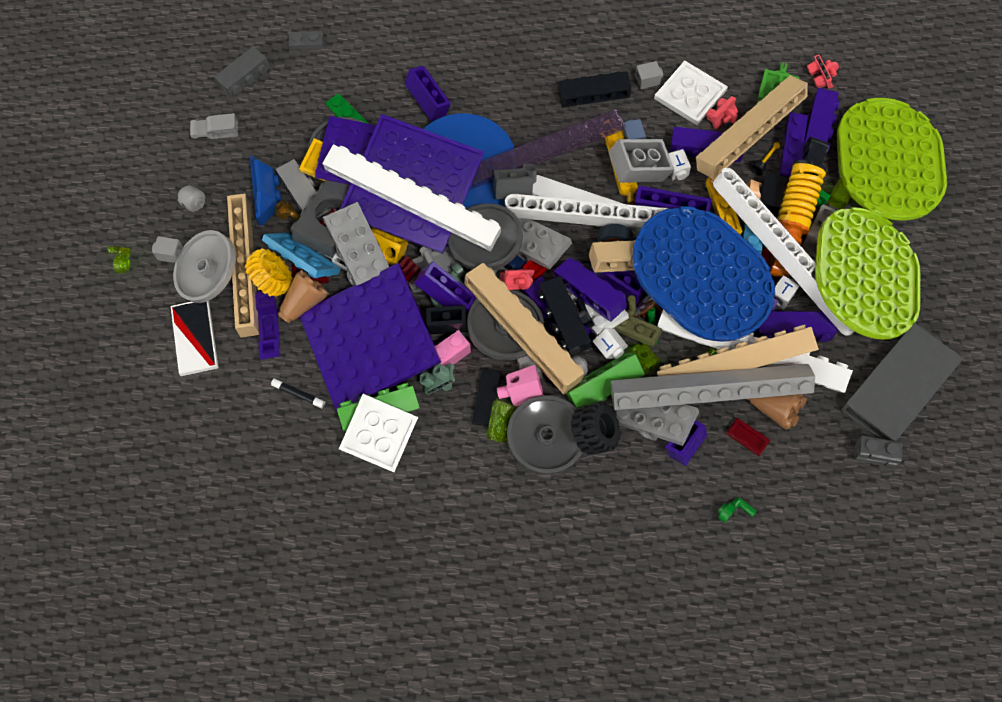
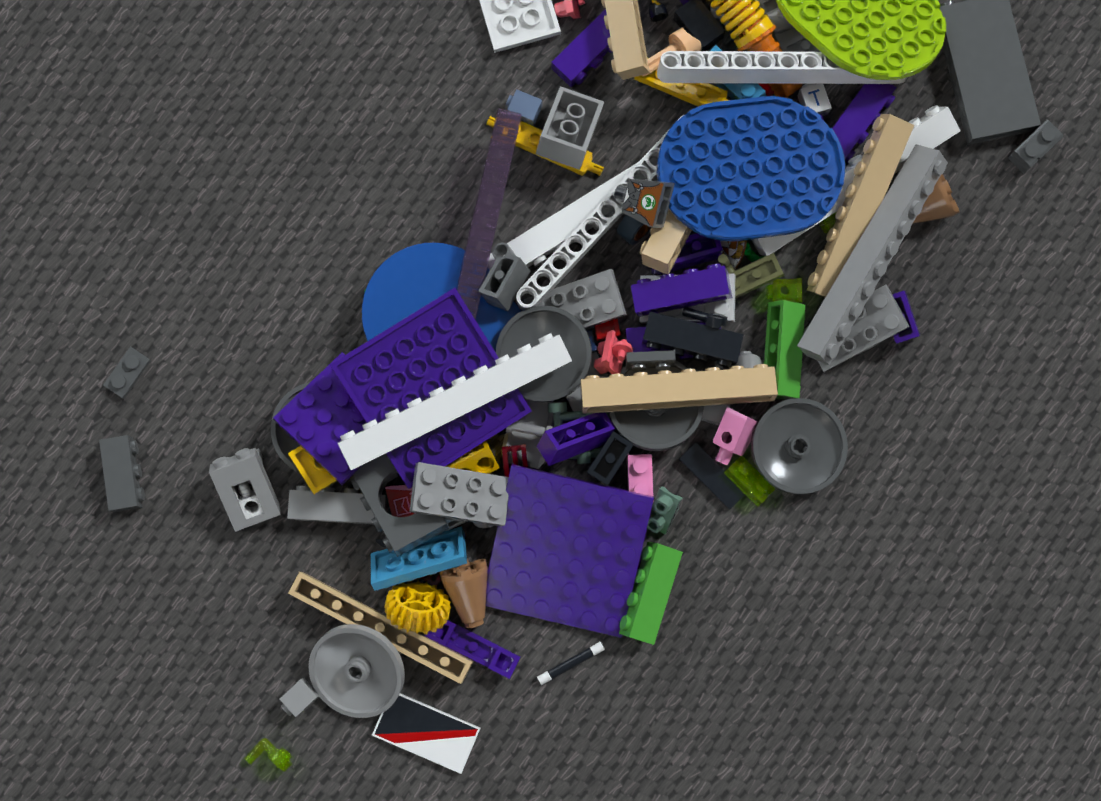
camera: 55 degrees left, 15 degrees up
(191, 198) = (251, 632): light grey head -> none
(215, 127) = (173, 550): light grey piece -> none
(264, 190) = (300, 545): blue wedge -> none
(282, 140) = (235, 470): none -> light grey brick
(284, 210) = (347, 538): pearl gold plate -> none
(342, 108) = (262, 392): green plate -> none
(378, 432) = (681, 611): white plate -> none
(427, 93) = (310, 288): dark purple brick -> none
(530, 299) = (641, 360): none -> dark grey plate
(594, 89) = (438, 106): black brick -> none
(595, 428) = (831, 395): black tyre -> none
(610, 343) = (750, 313): white brick -> none
(628, 221) = (646, 200): none -> torso
(648, 75) = (464, 36): light grey brick -> none
(666, 199) = (640, 135): dark purple brick -> none
(680, 164) = (597, 89): white brick -> none
(727, 511) = (992, 331): green plate -> none
(748, 437) = (932, 254): dark red tile -> none

